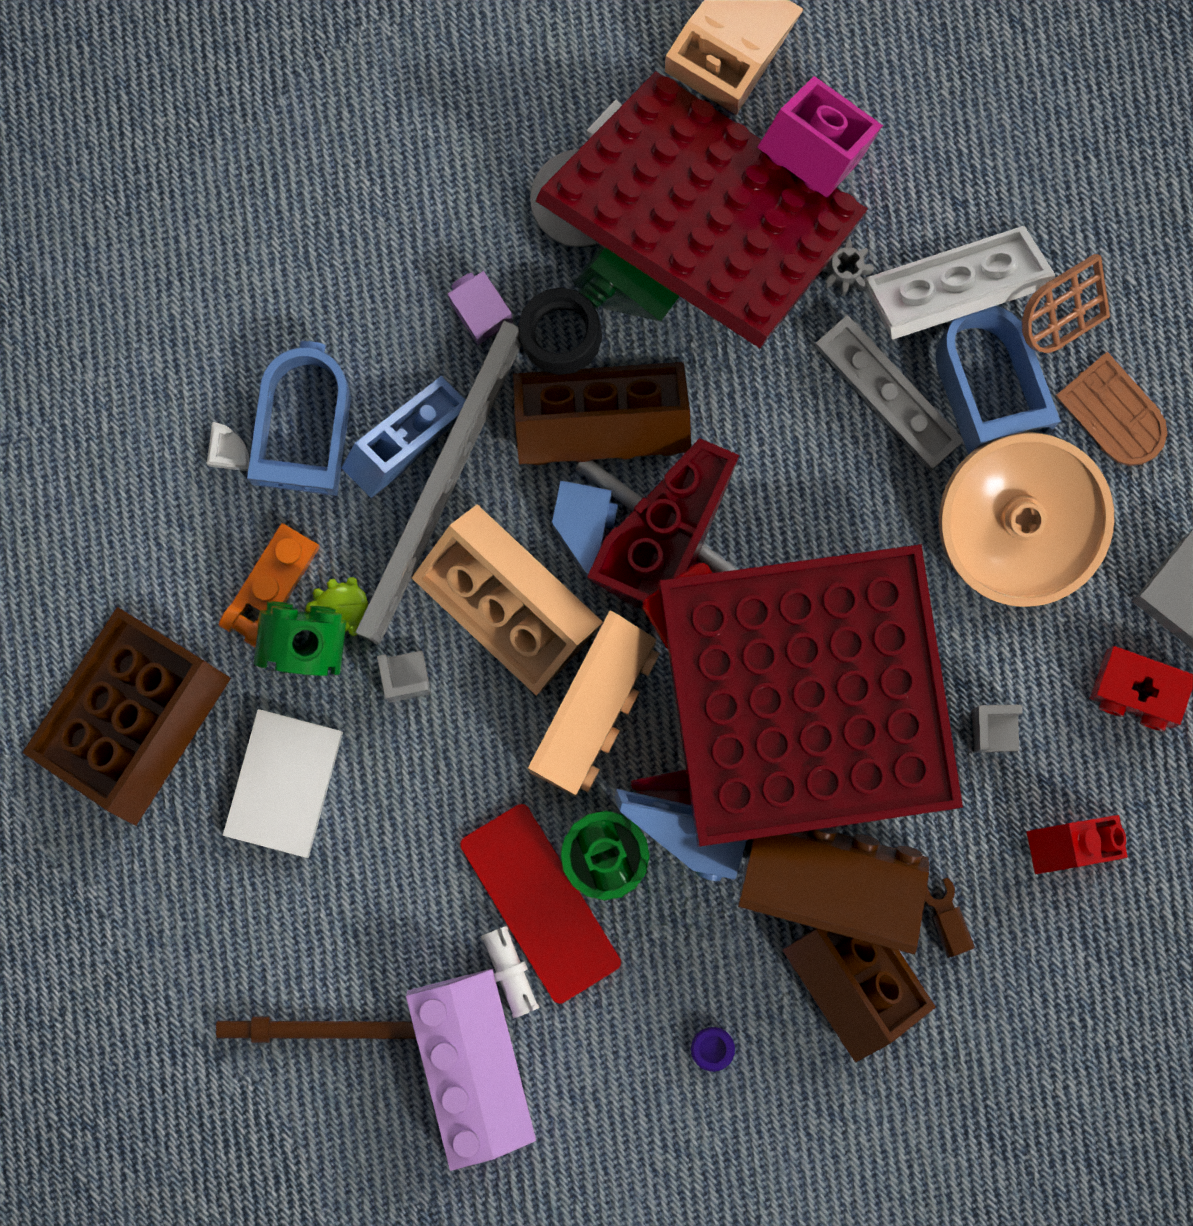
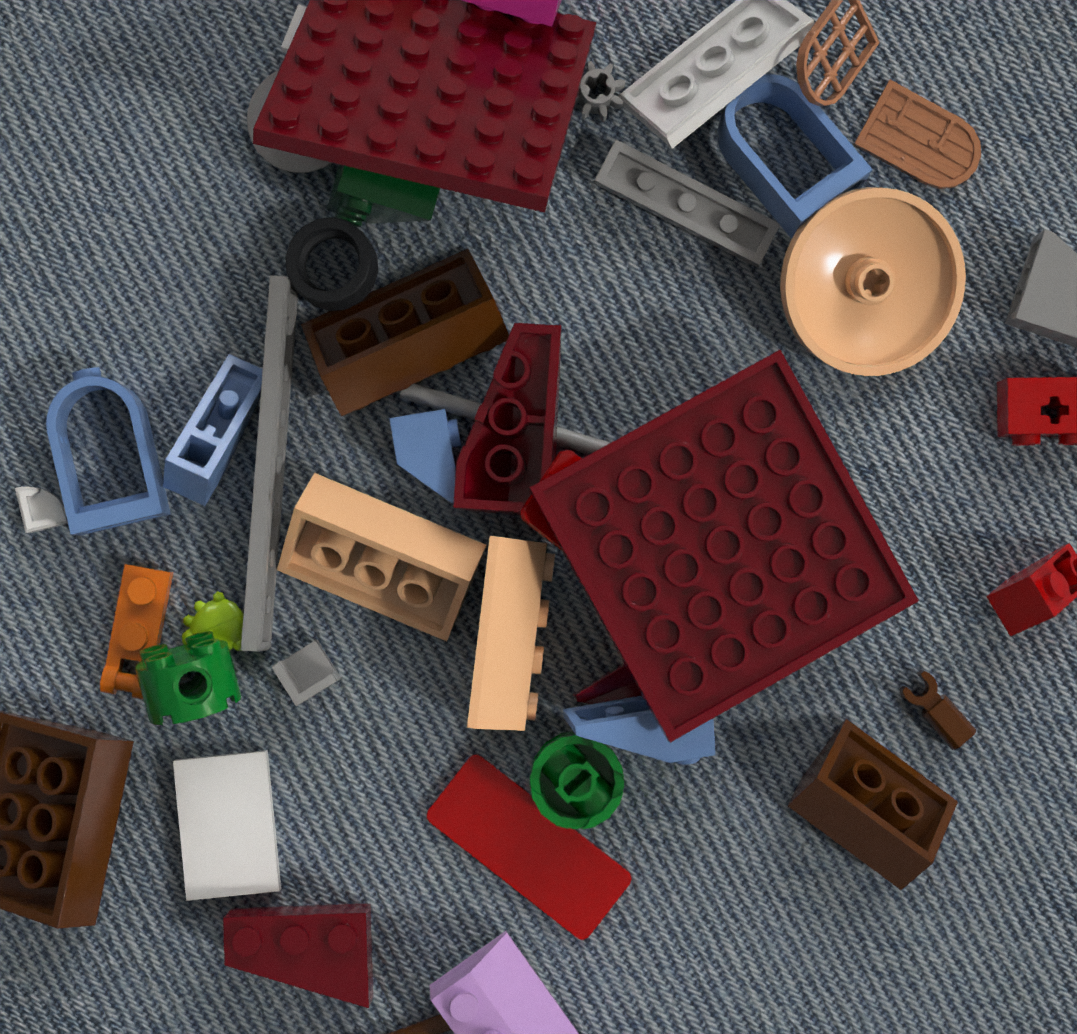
camera: 25 degrees left, 5 degrees up
(313, 915) = (305, 947): none -> dark red wedge
(479, 306) = (239, 269): lavender brick -> none
(510, 972) = (524, 927): white pin -> none
(712, 1049) = (753, 926): dark purple tile -> none
(839, 885) = (825, 728): reddish brown slope -> none
(996, 728) = (917, 503): light grey panel -> none

